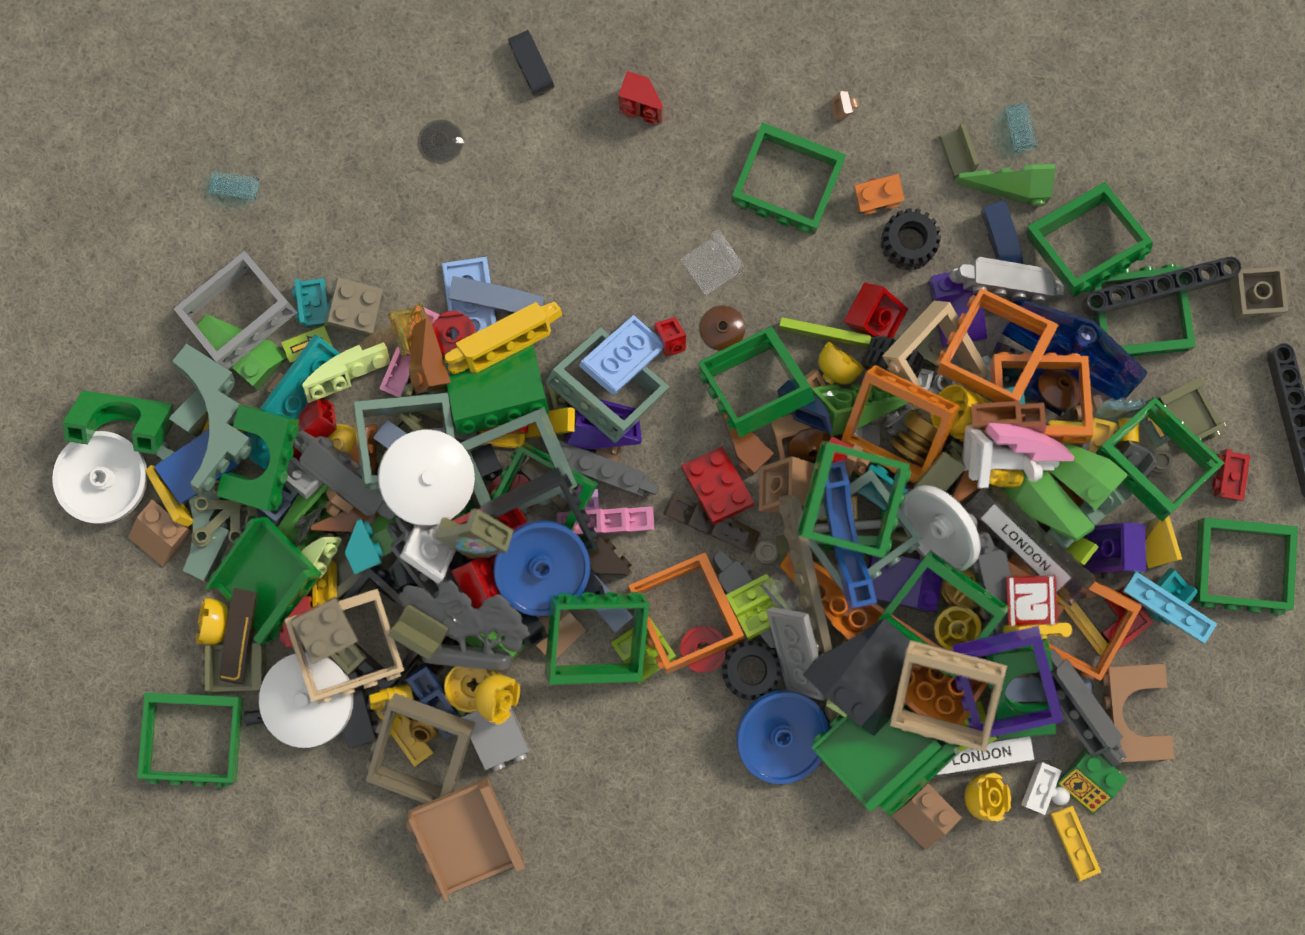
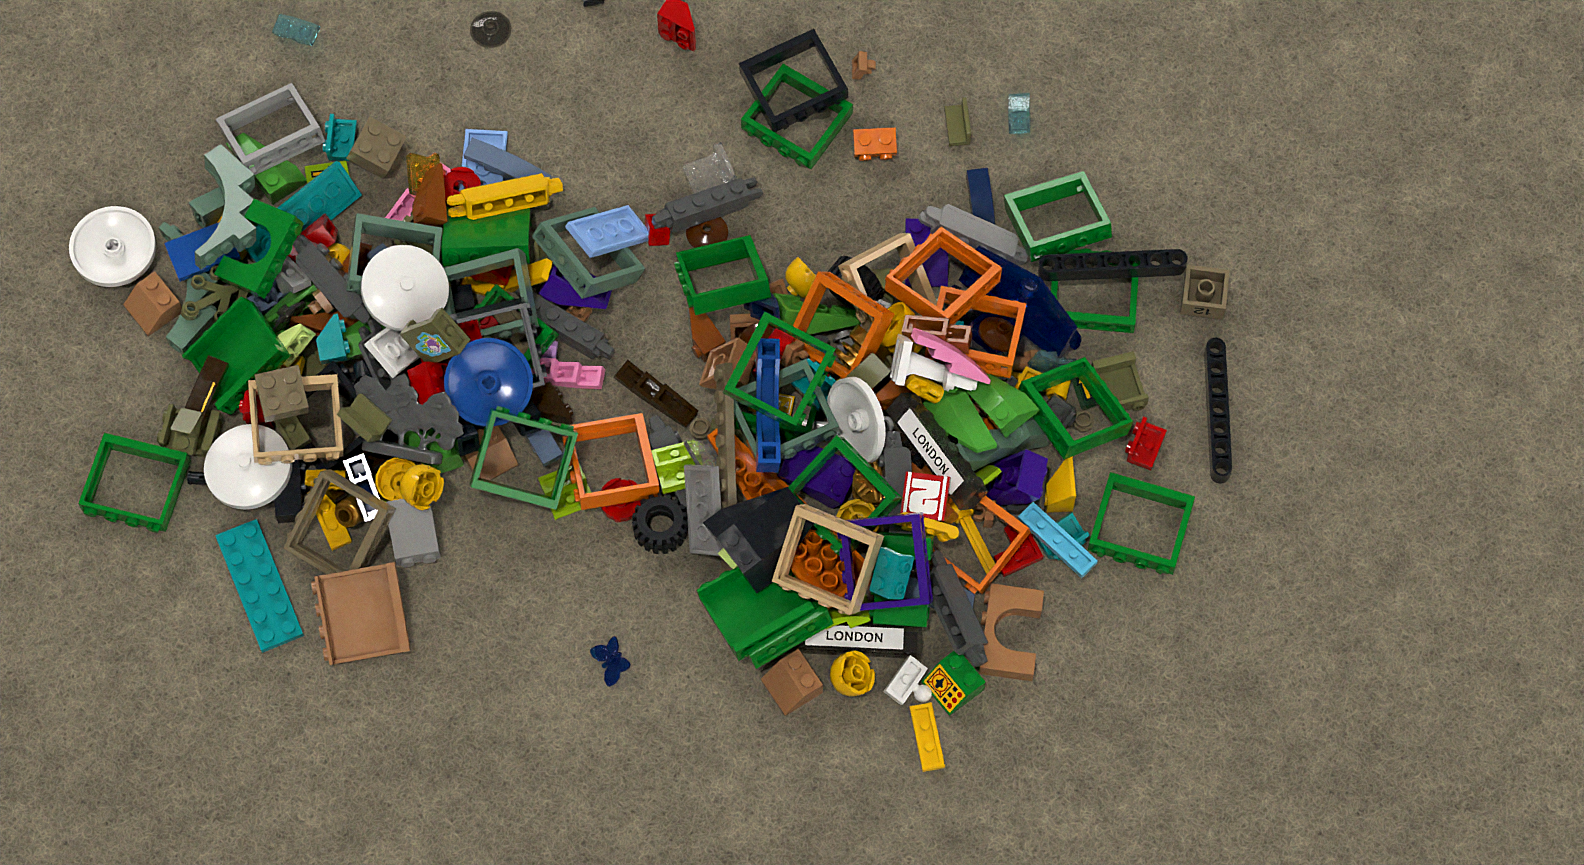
camera: 10 degrees right, 15 degrees down
(96, 409) = (168, 206): green arch -> none
(177, 512) = (170, 273): yellow tile -> none
(212, 622) = (180, 386): yellow cylinder -> none
(231, 673) = (187, 430): none -> olive slope
(339, 370) = (355, 196): yellowish green slope -> none
(349, 822) = (259, 585): none -> teal plate
(717, 485) = (668, 360): red plate -> none
(718, 301) = (707, 205): none -> dark grey hinge
(735, 827) = (614, 662): none -> clear blue piece
(757, 113) = (783, 52): none -> black window
(778, 736) = (667, 582): blue dish -> none
(824, 332) = (795, 250): lime tile -> none
(875, 312) = (846, 238): red slope -> none
(902, 255) = (890, 201): black tyre -> none
(1019, 701) = (891, 574): none -> teal bracket
(1027, 186) = (1009, 160): bright green wedge -> none

